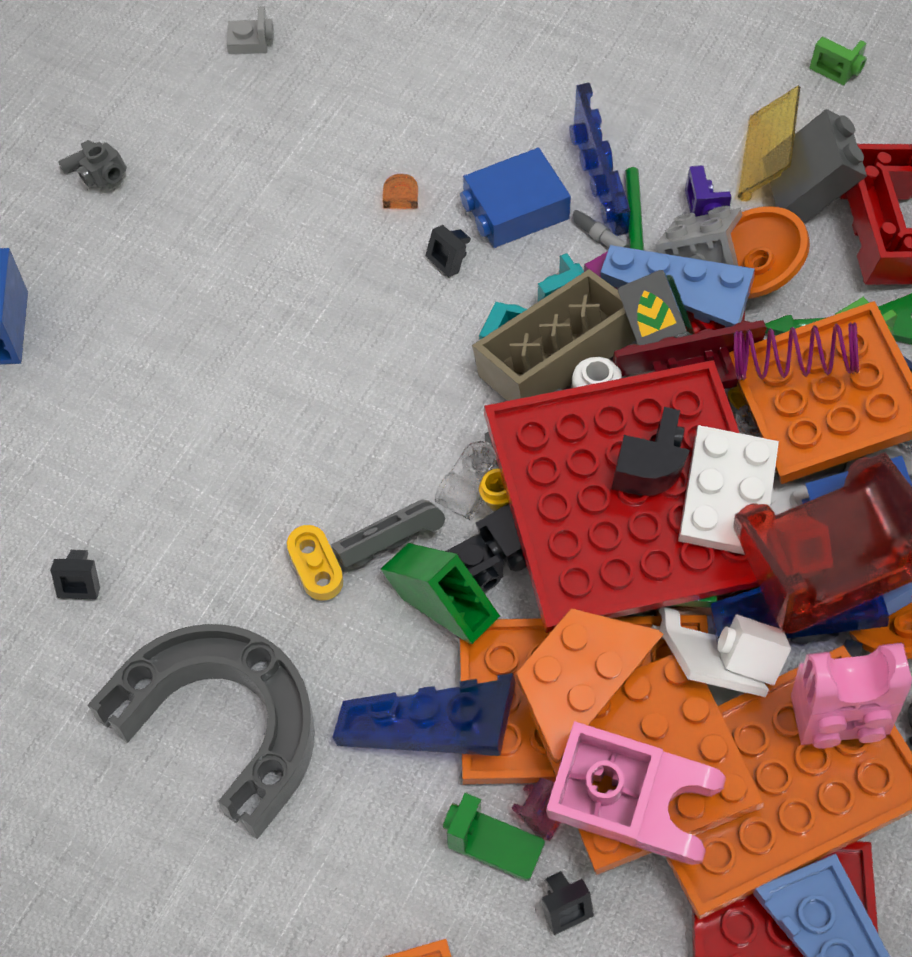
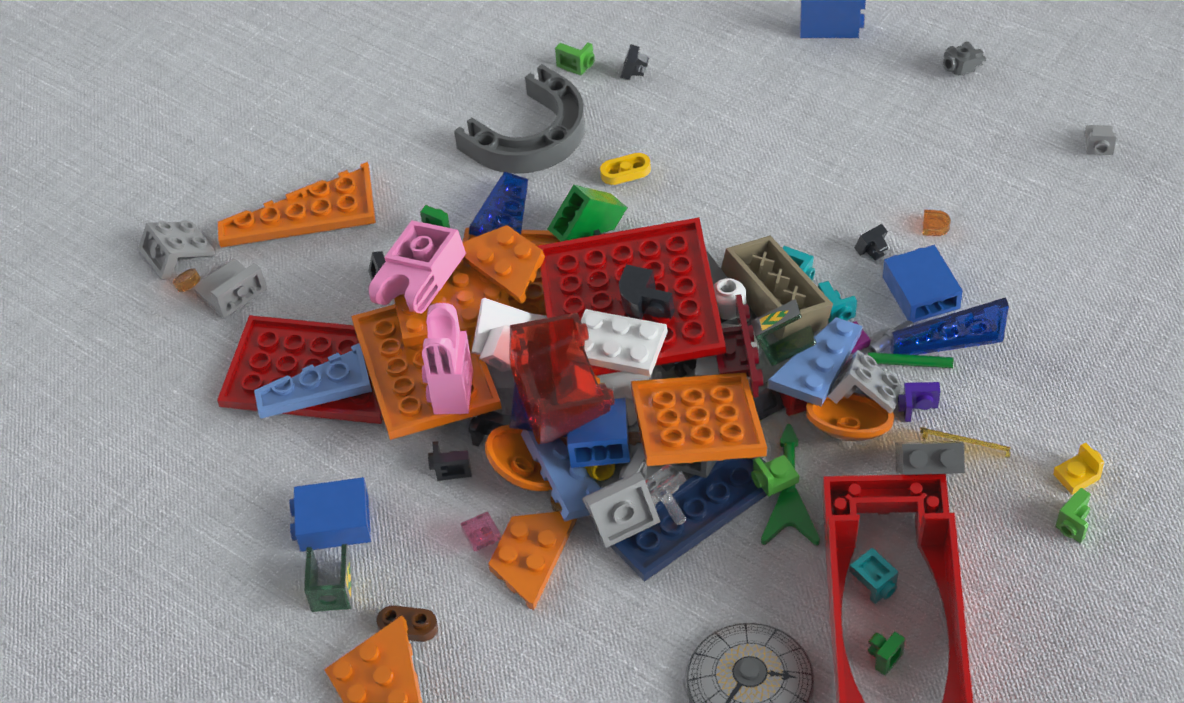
camera: 100 degrees right, 10 degrees down
(59, 670) = (574, 59): none -> bright green bracket
(388, 533) = (638, 199): dark grey plate -> none
(741, 351) = (705, 399): magenta piece -> none
(770, 59) = (1080, 470): none -> yellow bracket

